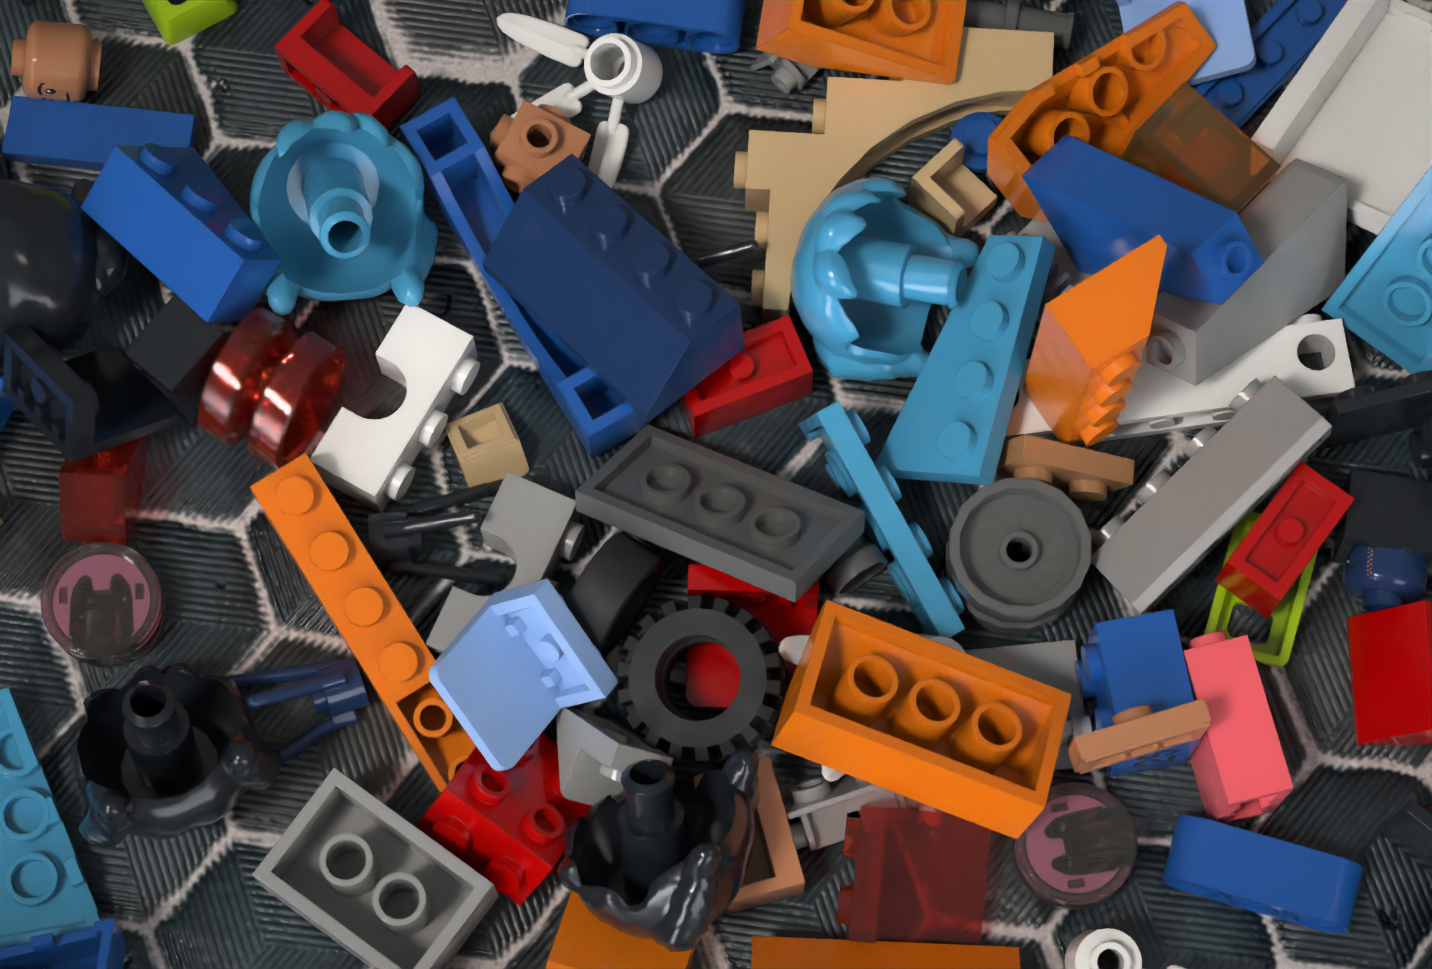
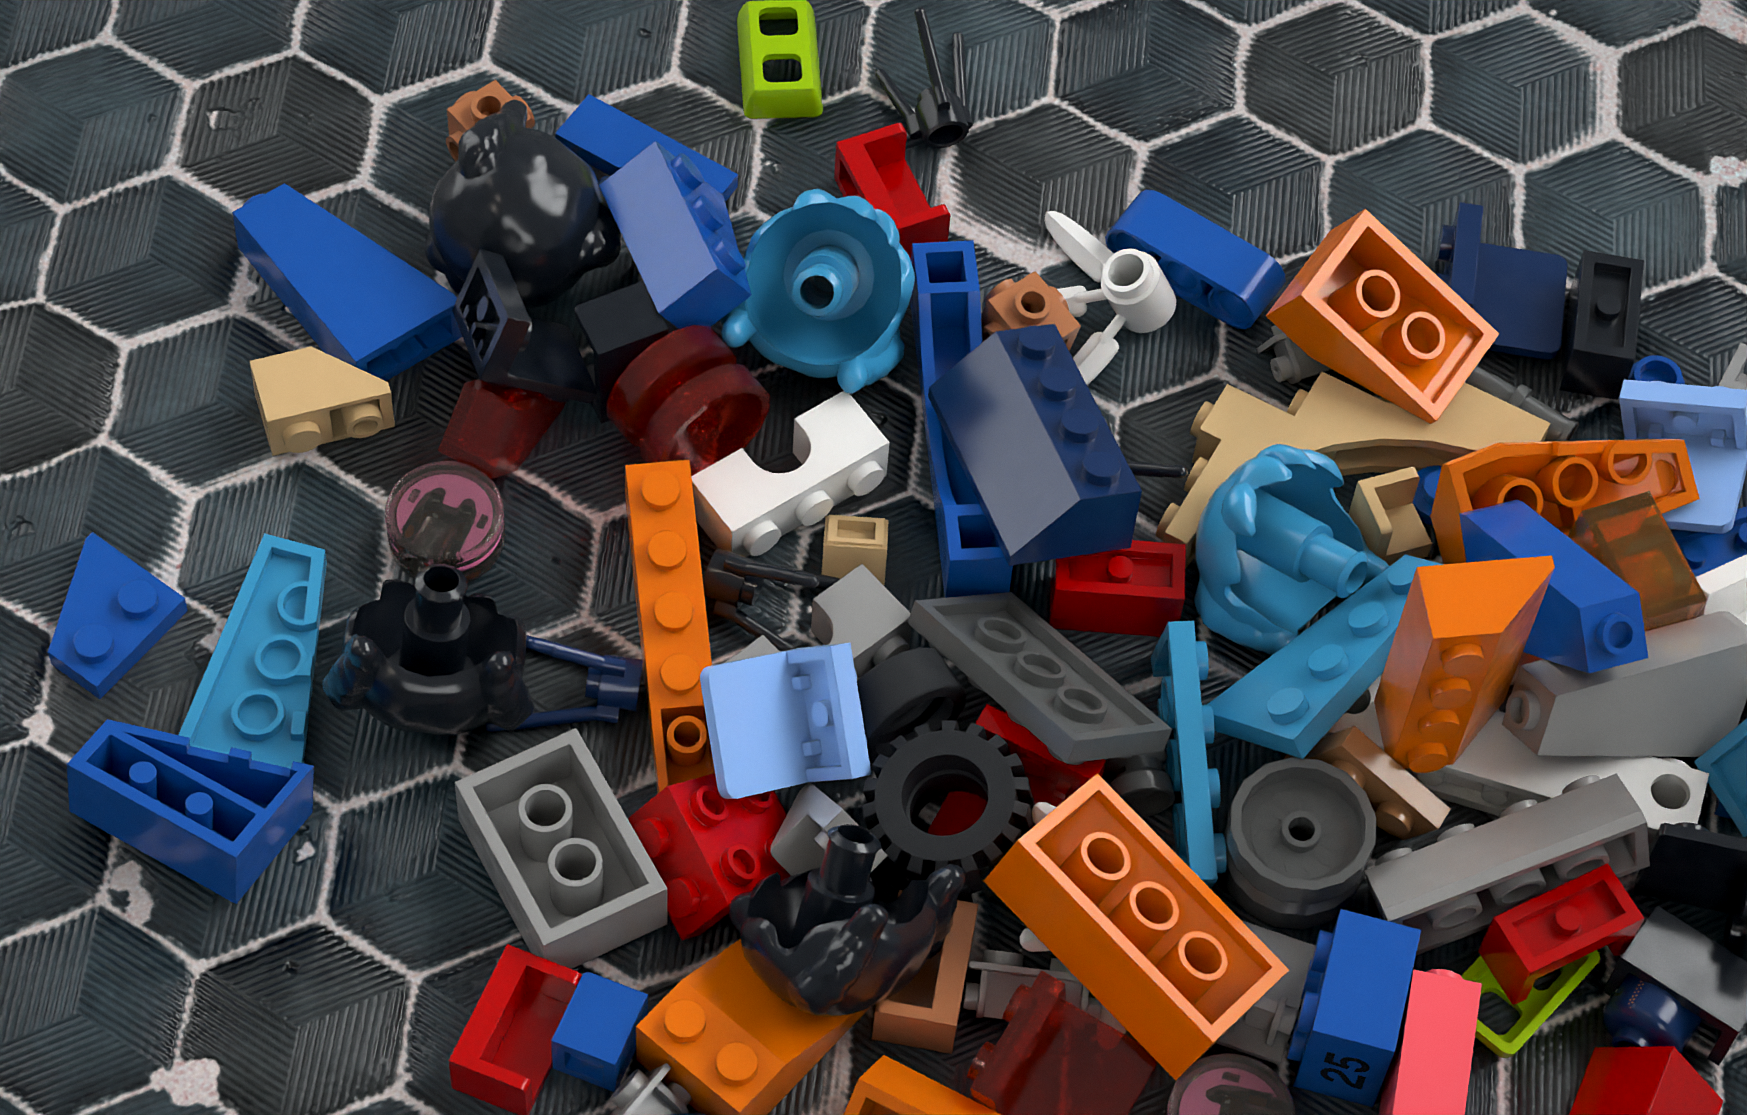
camera: 20 degrees right, 15 degrees down
(57, 61) = (641, 81): nougat head -> none
(1138, 734) = (1333, 1012): nougat plate -> none

